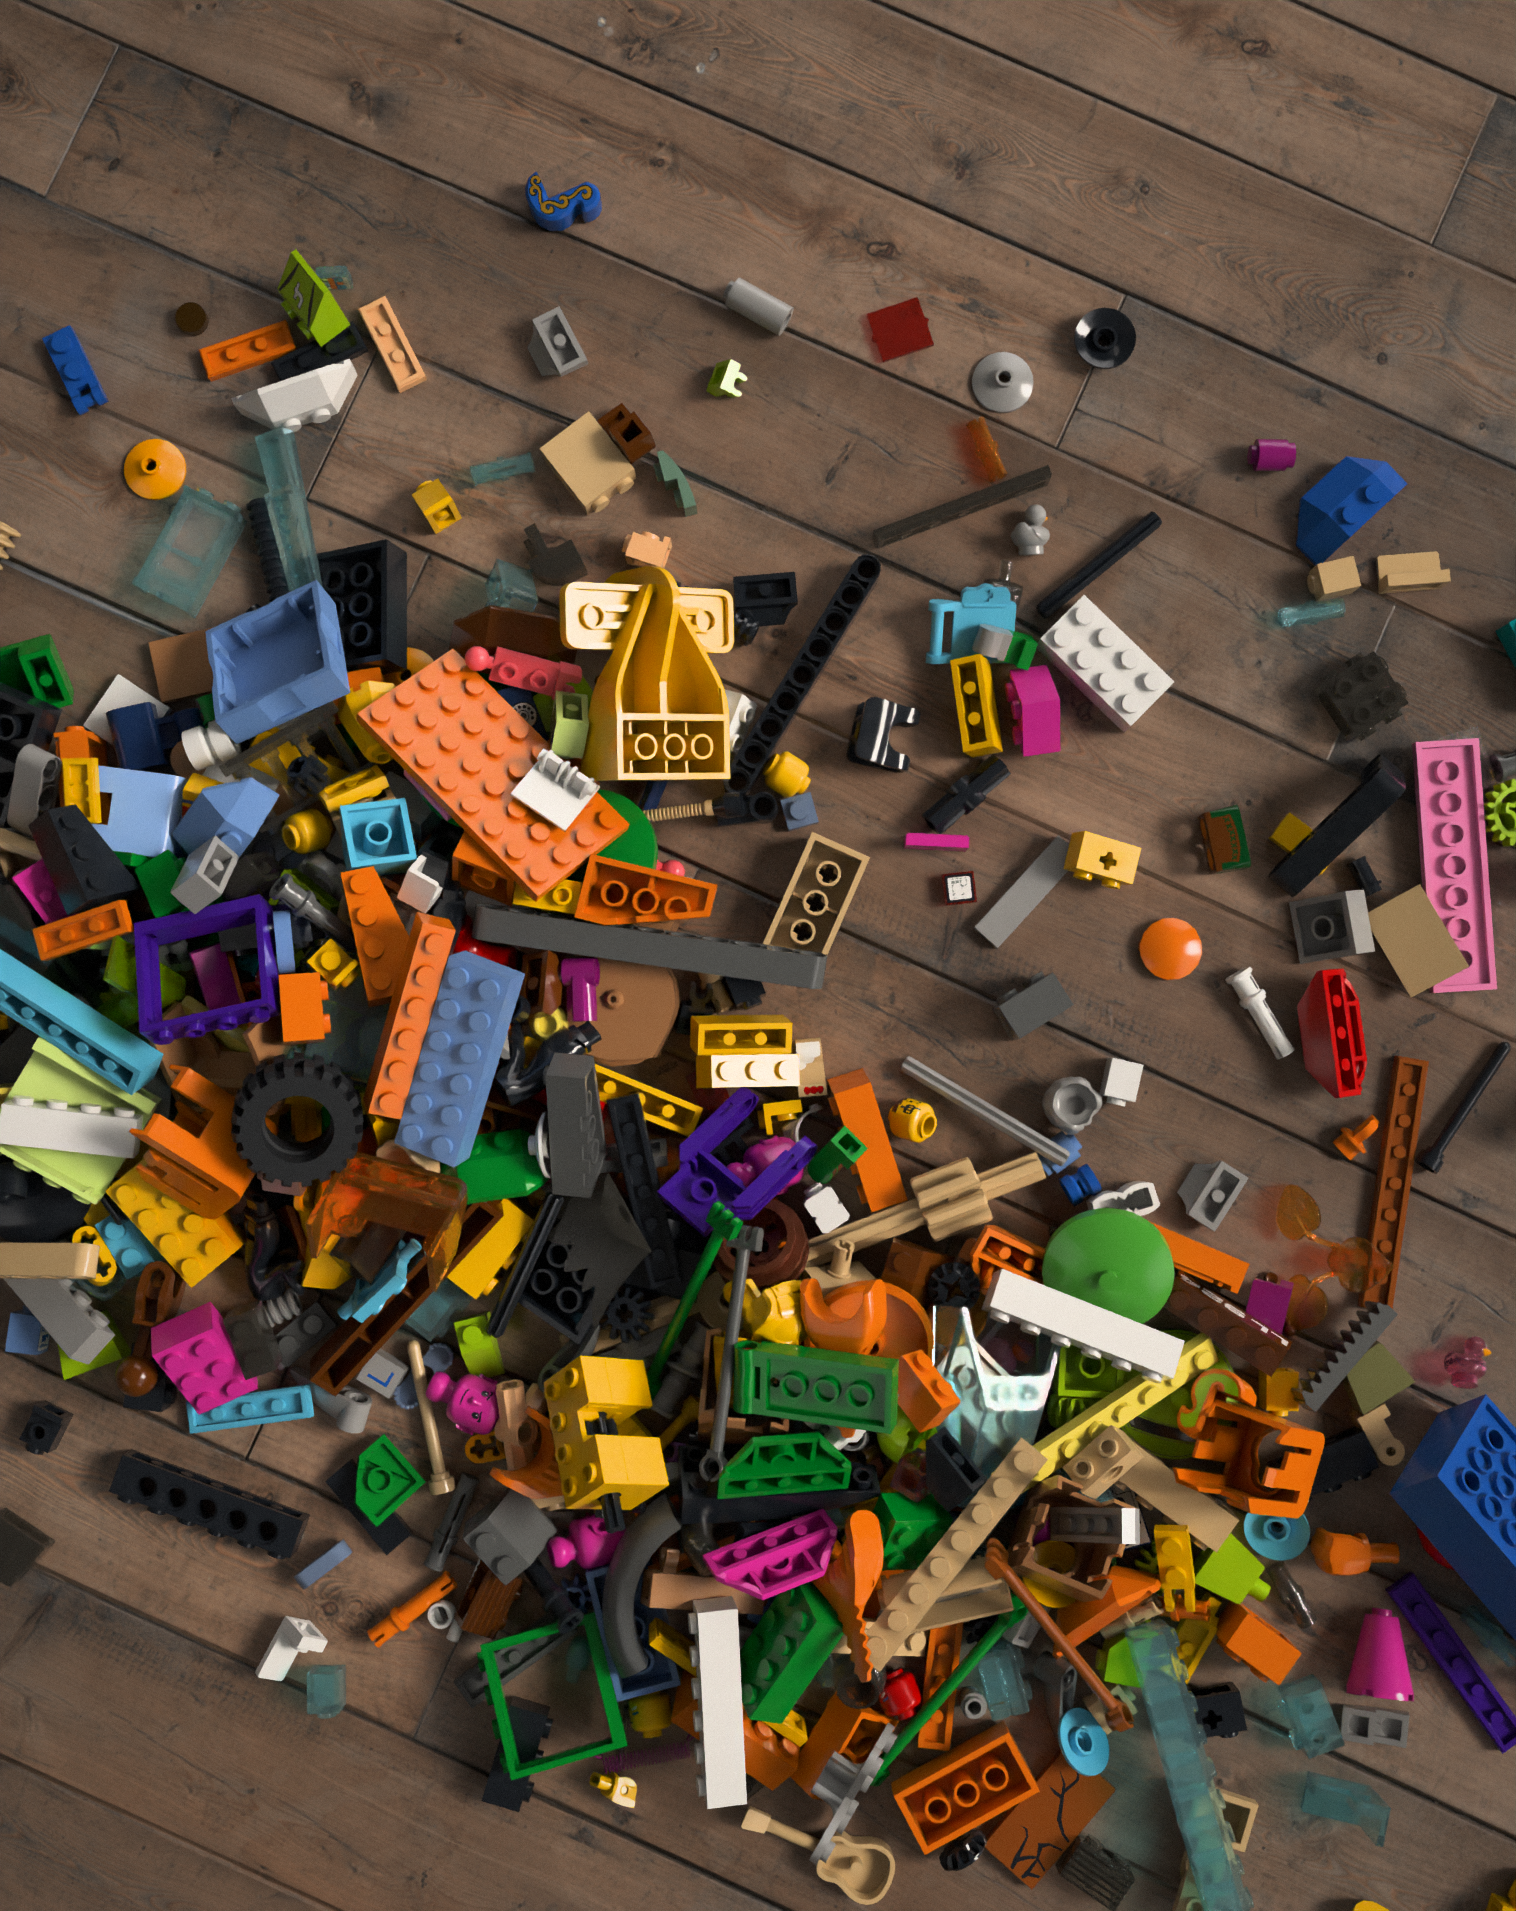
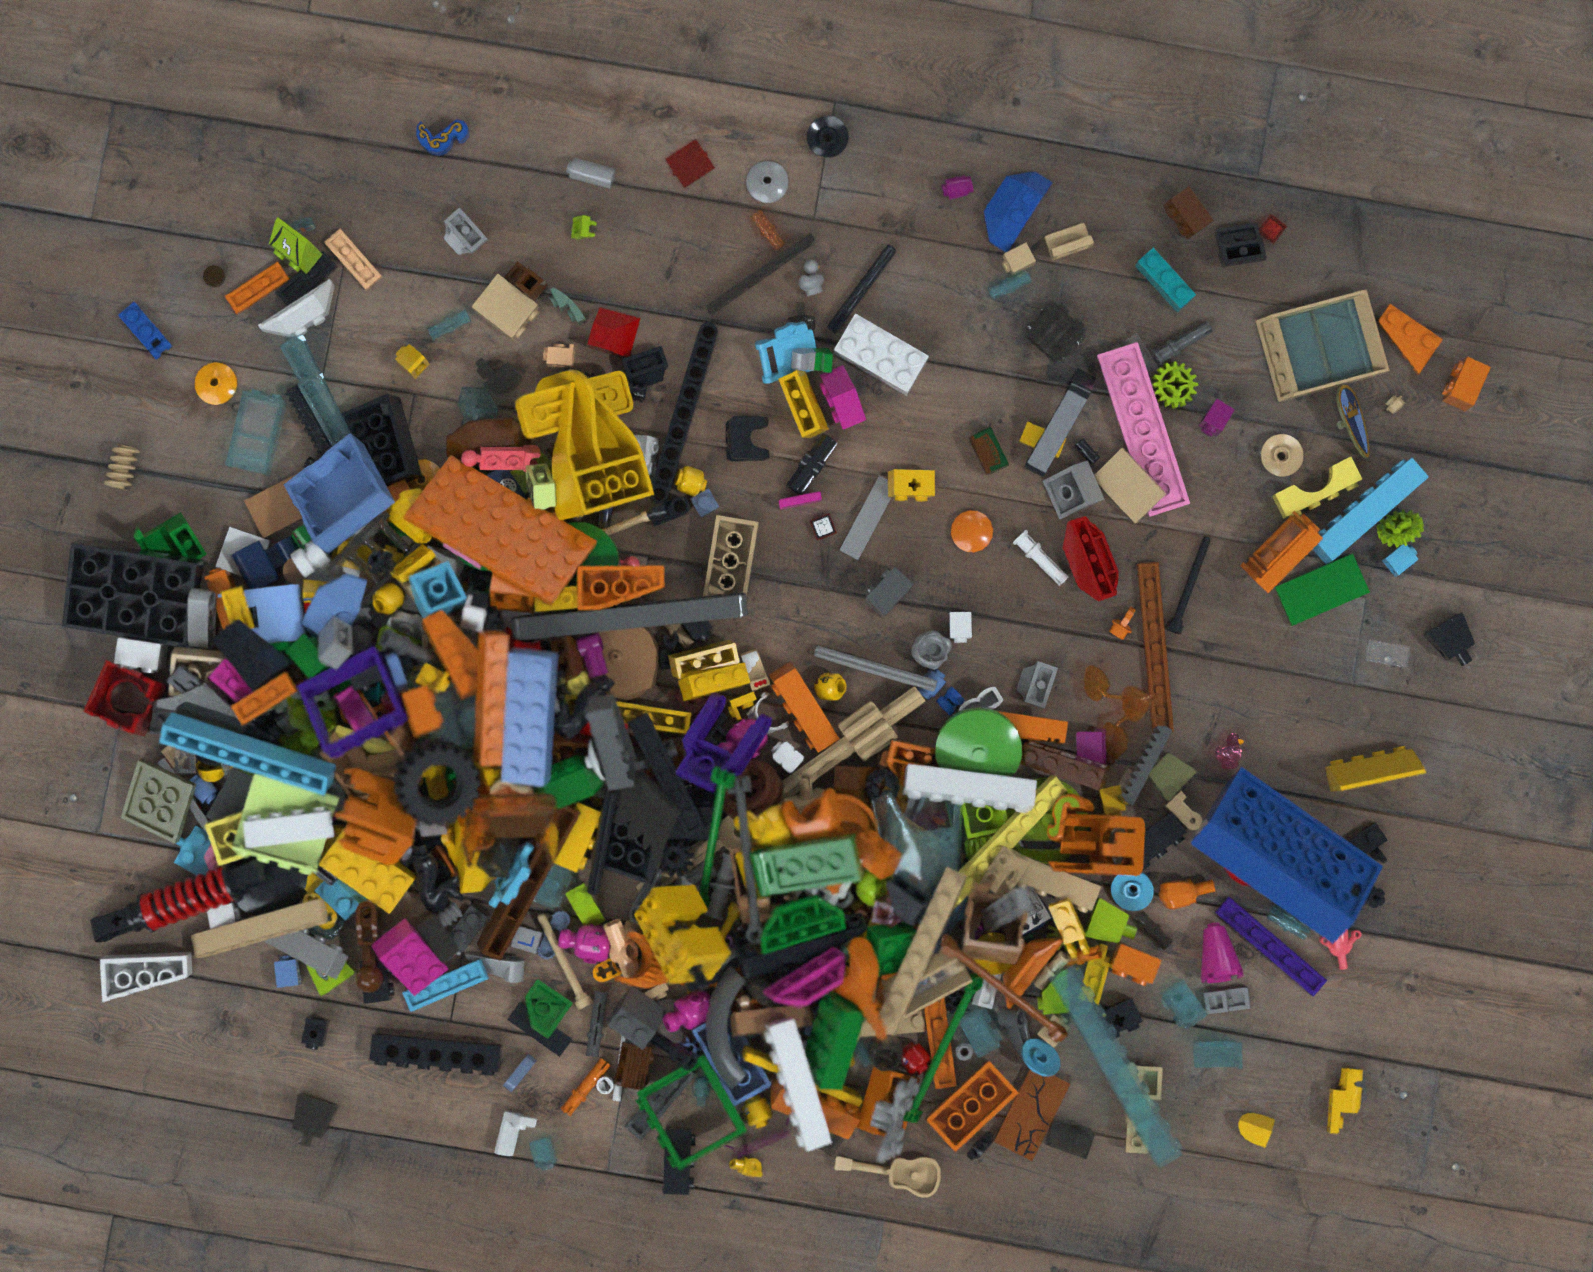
camera: 20 degrees left, 0 degrees up
(555, 790) = (544, 531): white hinge -> none
(731, 538) = (613, 332): none -> red slope
(838, 1152) = (784, 720): green leg -> none

